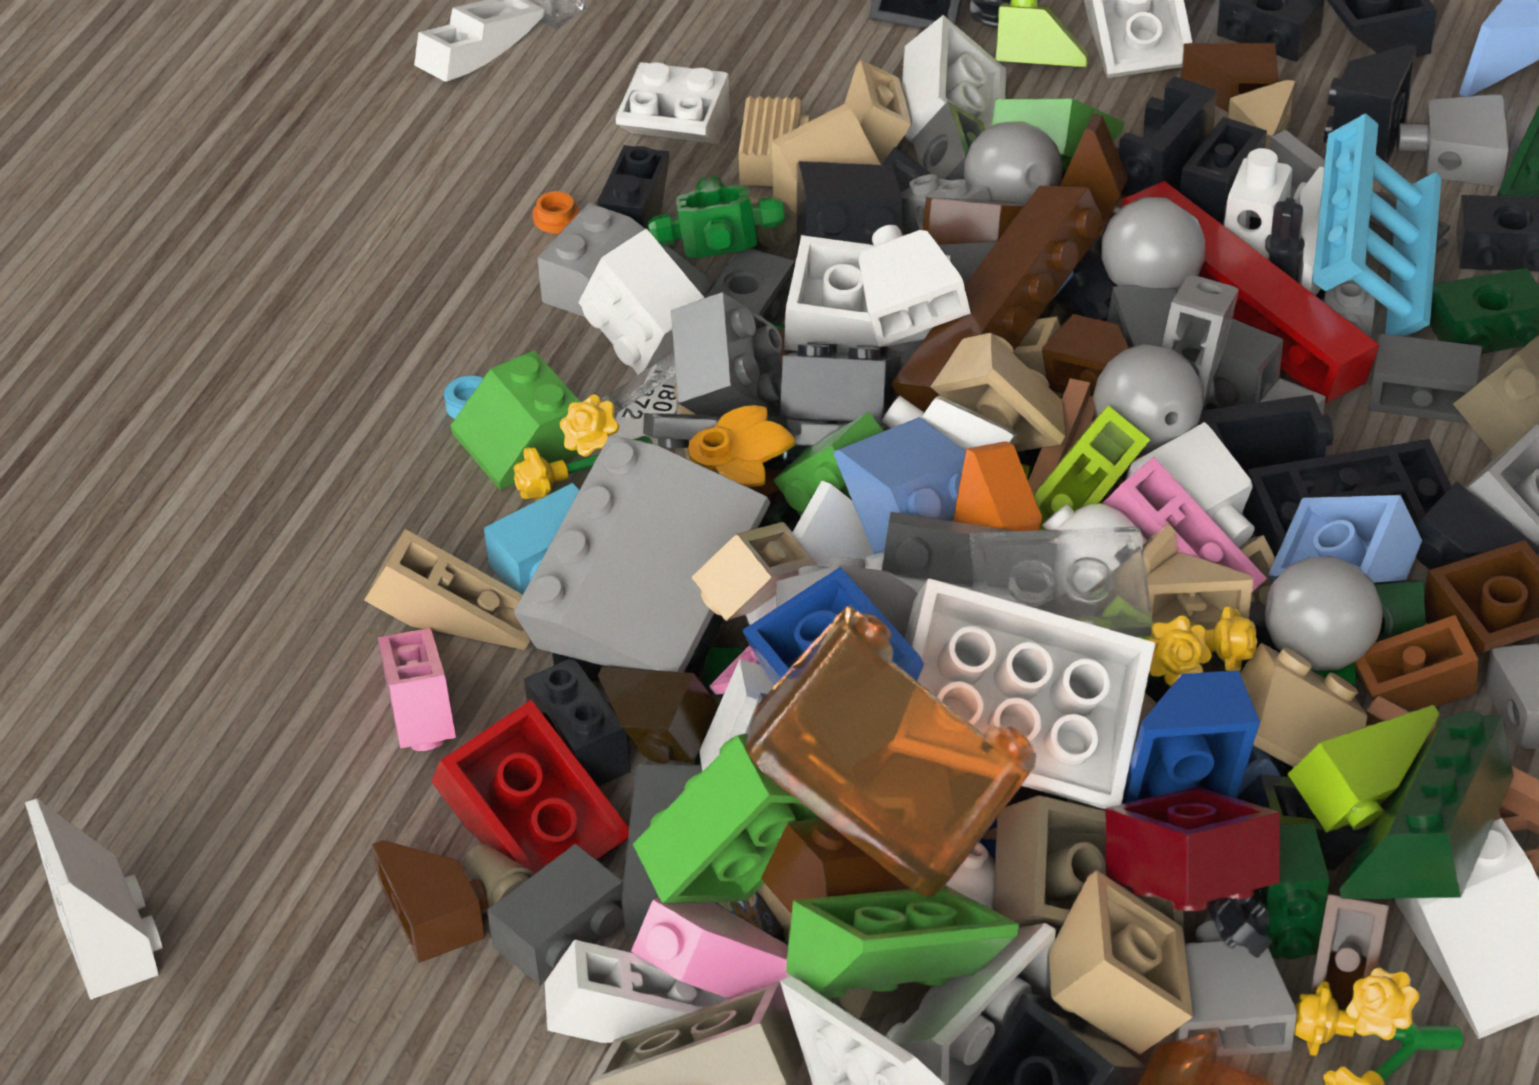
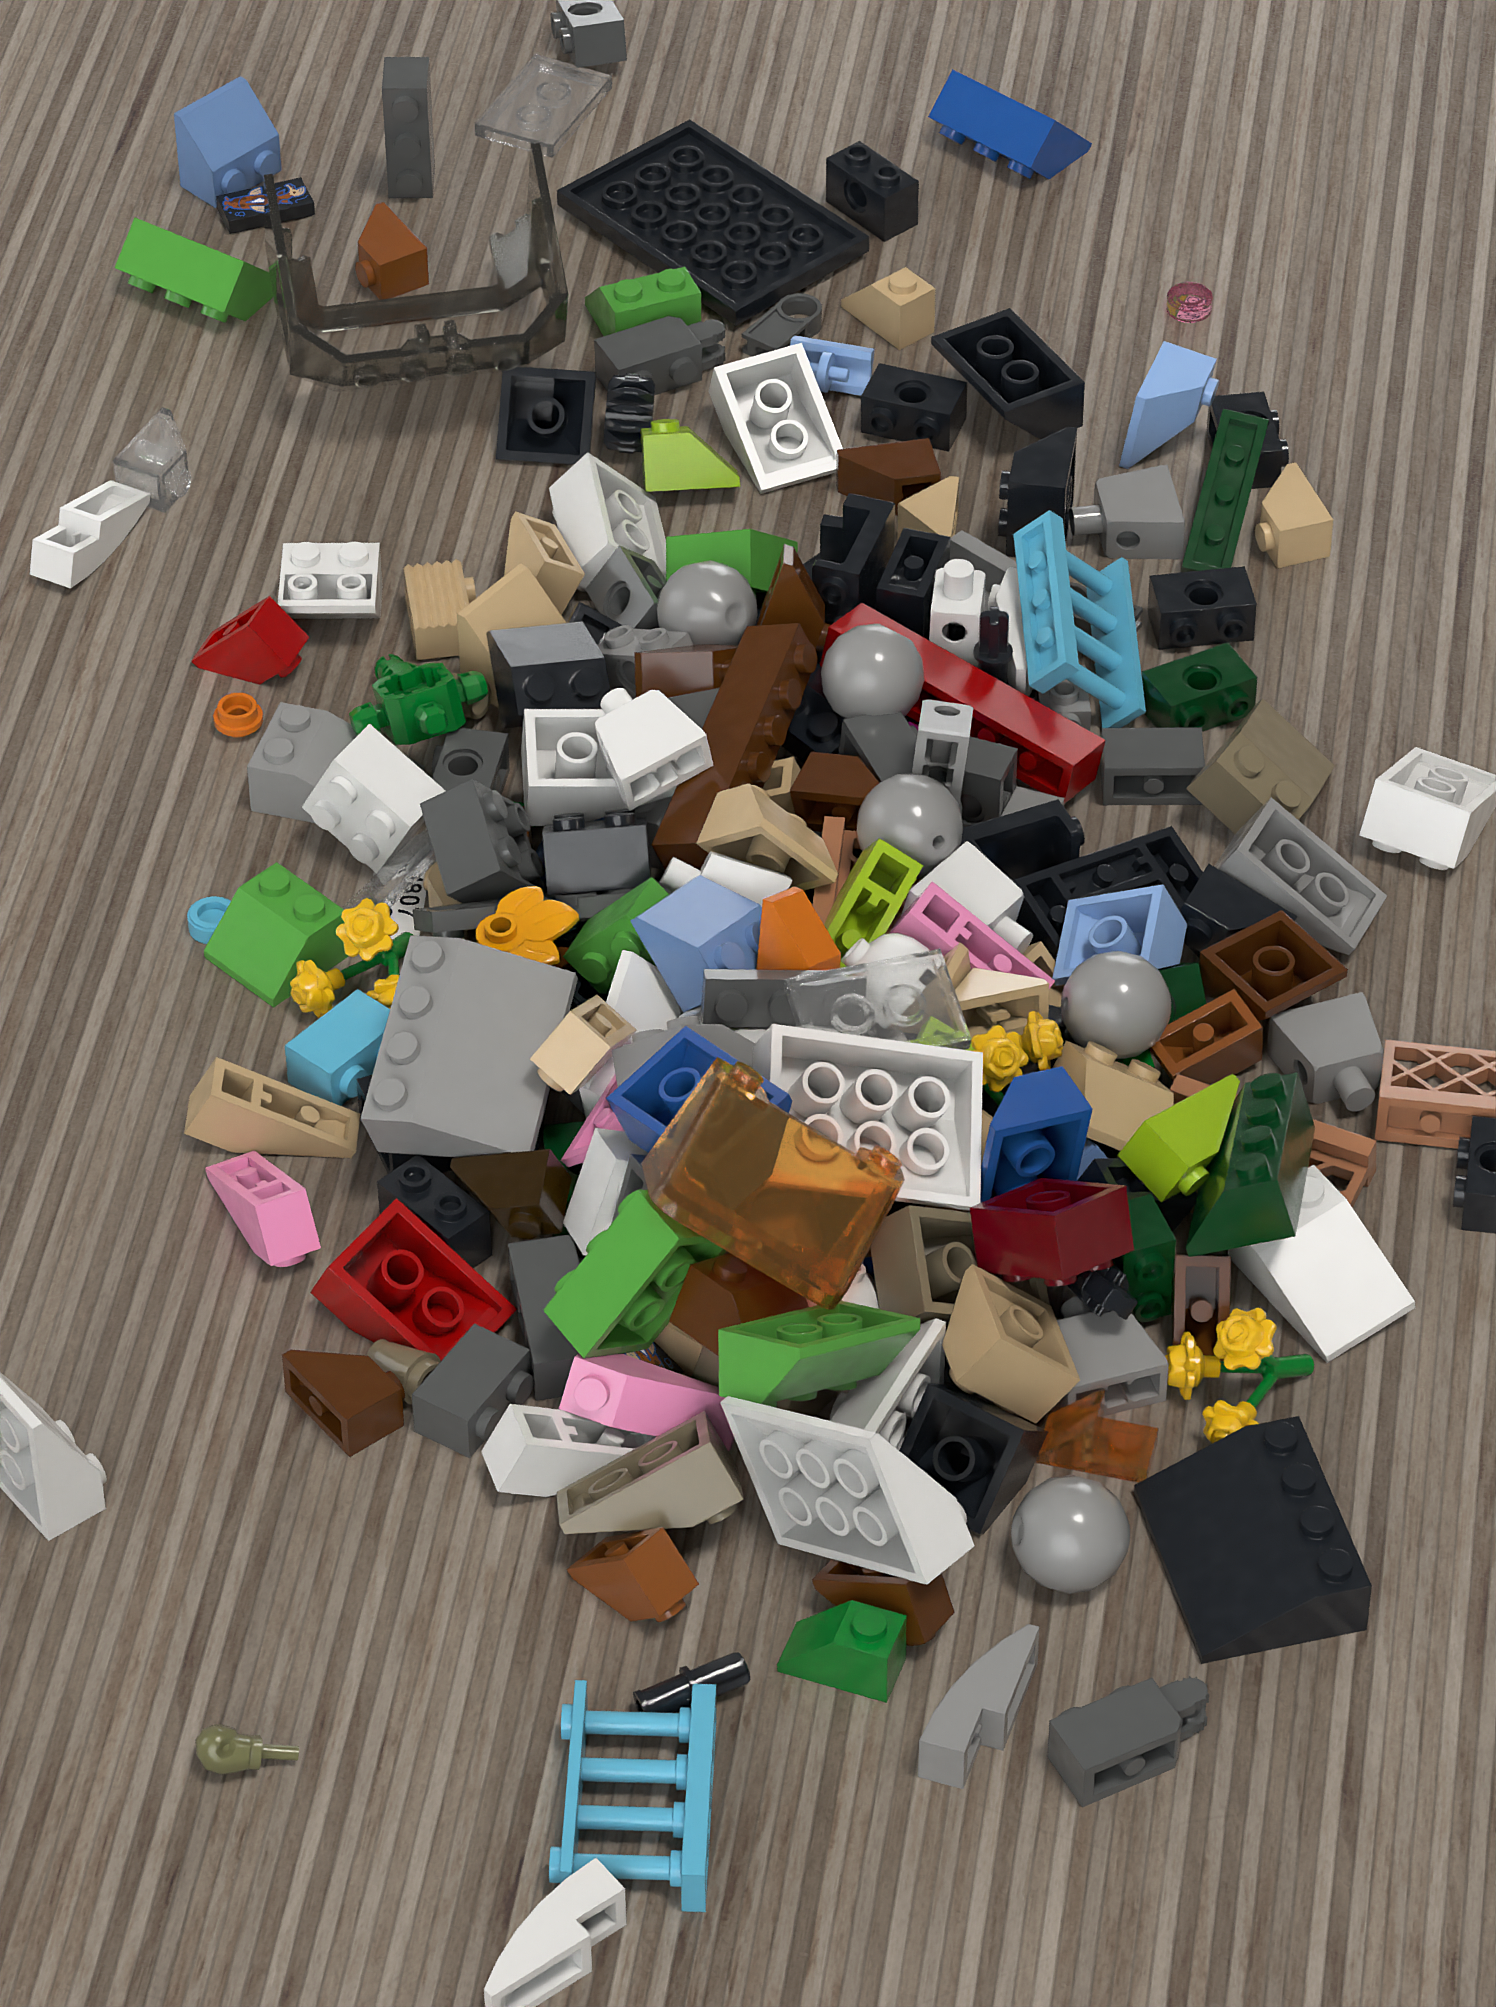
camera: 15 degrees left, 0 degrees up
(587, 150) = (254, 645): none -> red slope
(636, 184) = (319, 673): black slope -> none

